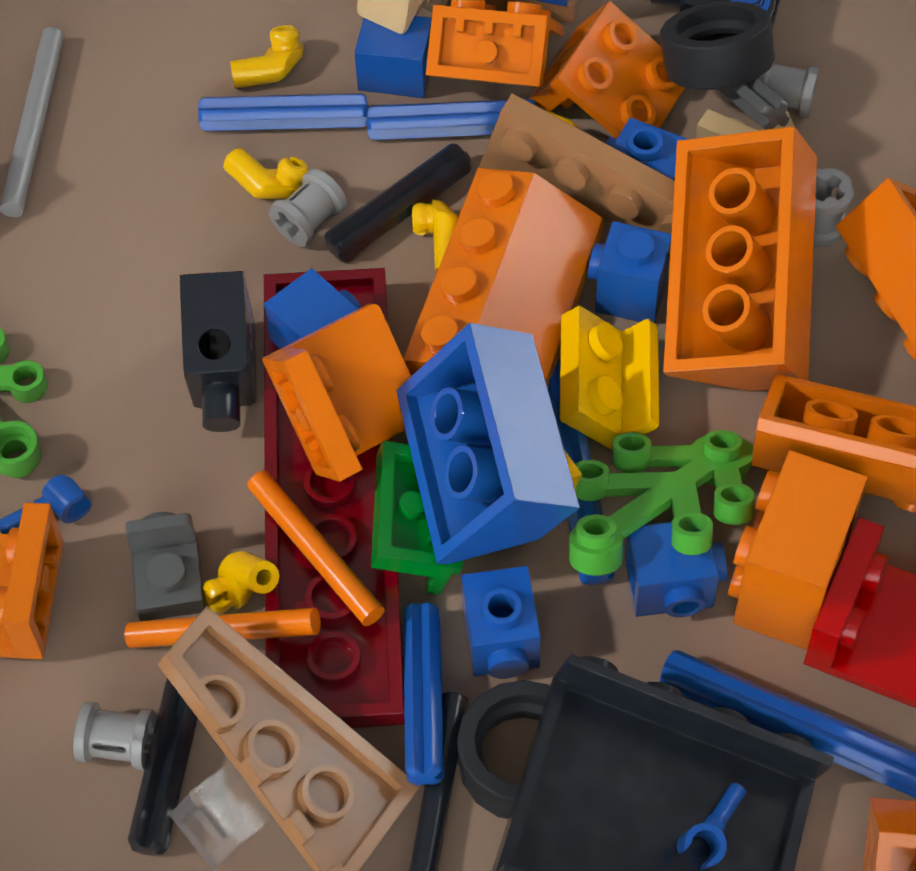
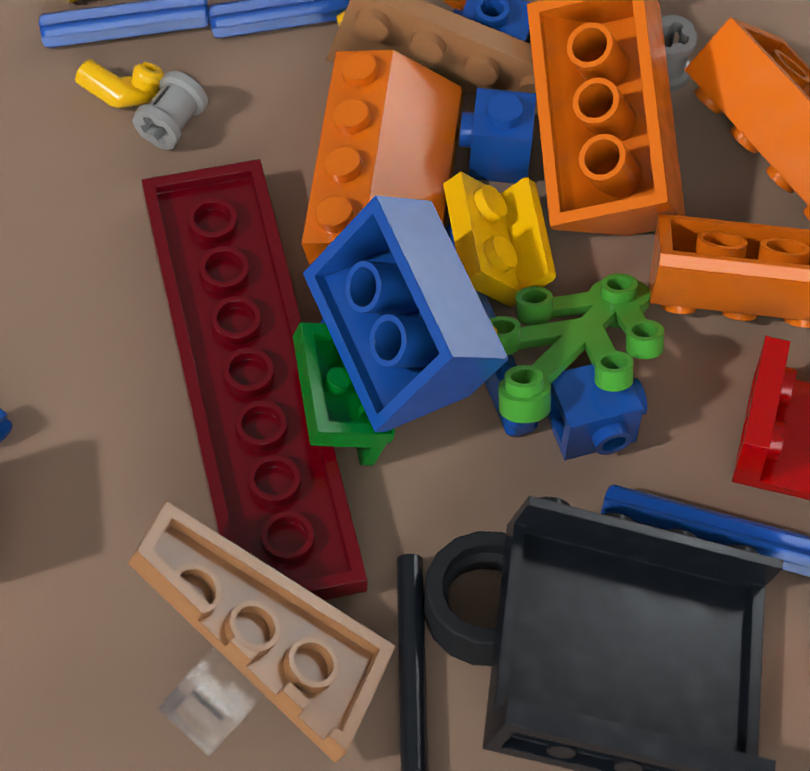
camera: 15 degrees left, 0 degrees up
(113, 735) = (87, 641): light grey bush -> none
(163, 775) = (142, 665): black axle -> none
(165, 566) = (102, 473): dark grey bracket -> none
(218, 346) = (114, 253): black torso -> none
(238, 579) = (179, 473): yellow arm -> none
(249, 625) = (212, 514): orange bar -> none
(305, 307) = (209, 221): blue brick -> none
(315, 548) = (250, 434): orange bar -> none
(341, 389) = (250, 279): orange bracket -> none
(397, 201) = (256, 95): black axle -> none
(423, 694) = (381, 559): blue axle -> none
(435, 220) = (306, 112): yellow arm -> none
(501, 622) = (442, 481): blue brick -> none
(714, 826) = (683, 643): blue hand -> none
(794, 547) = (710, 374): orange brick -> none

